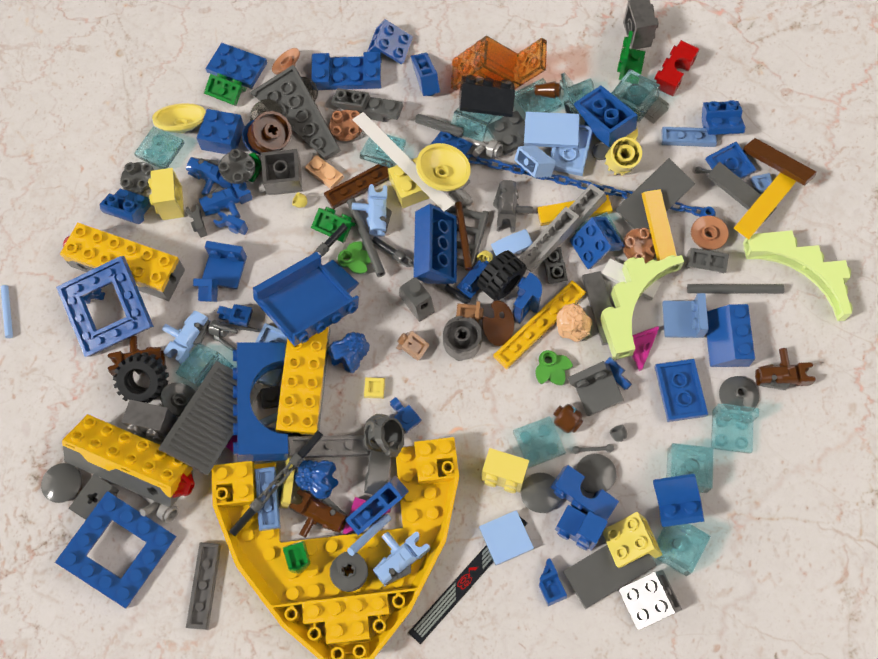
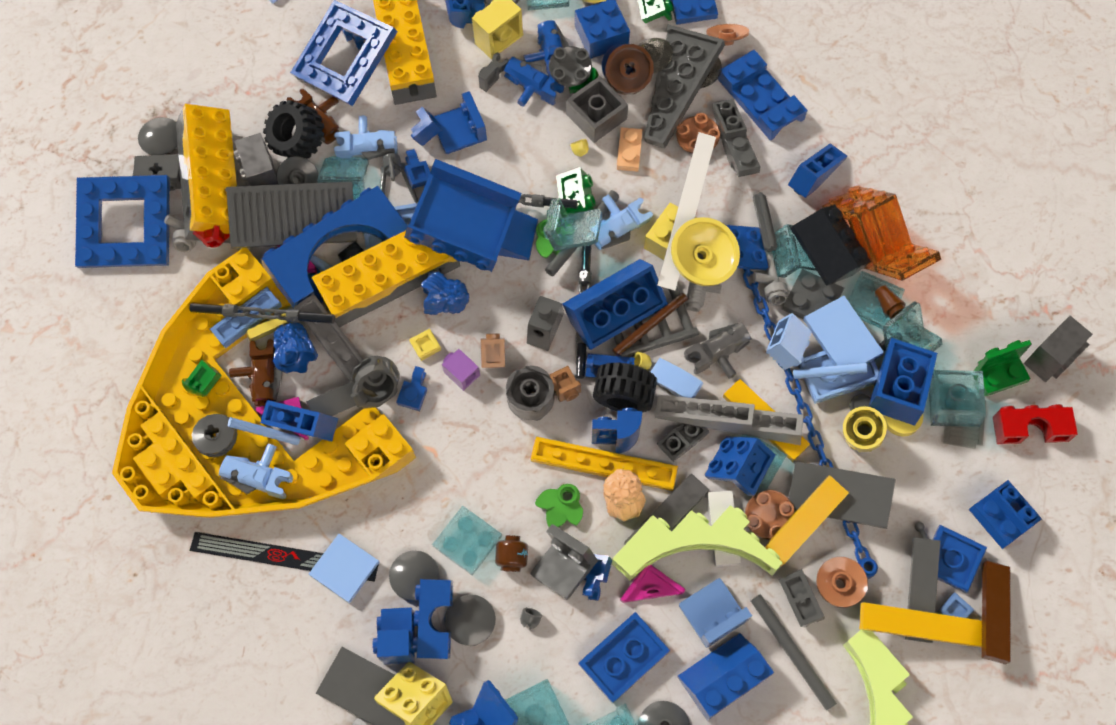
camera: 55 degrees right, 0 degrees up
(203, 586) = (134, 318): flat silver tile -> none
(235, 224) = (510, 106): blue plate -> none
(357, 185) = (636, 187): reddish brown tile -> none
(362, 237) = (572, 229): none -> clear light blue bracket
(373, 153) = (710, 192): clear light blue plate -> none
(390, 41) = (830, 114): bracket -> none
(411, 374) = (460, 369): none -> medium lavender brick
(499, 329) = (566, 423): reddish brown piece -> none
(504, 470) = (408, 521): light yellow brick -> none
(551, 585) = (321, 643): blue slope -> none
(565, 160) = (830, 370): none -> light blue bar
(609, 448) = (508, 618): dark grey hinge -> none
(687, 137) = (952, 489): medium blue tile -> none

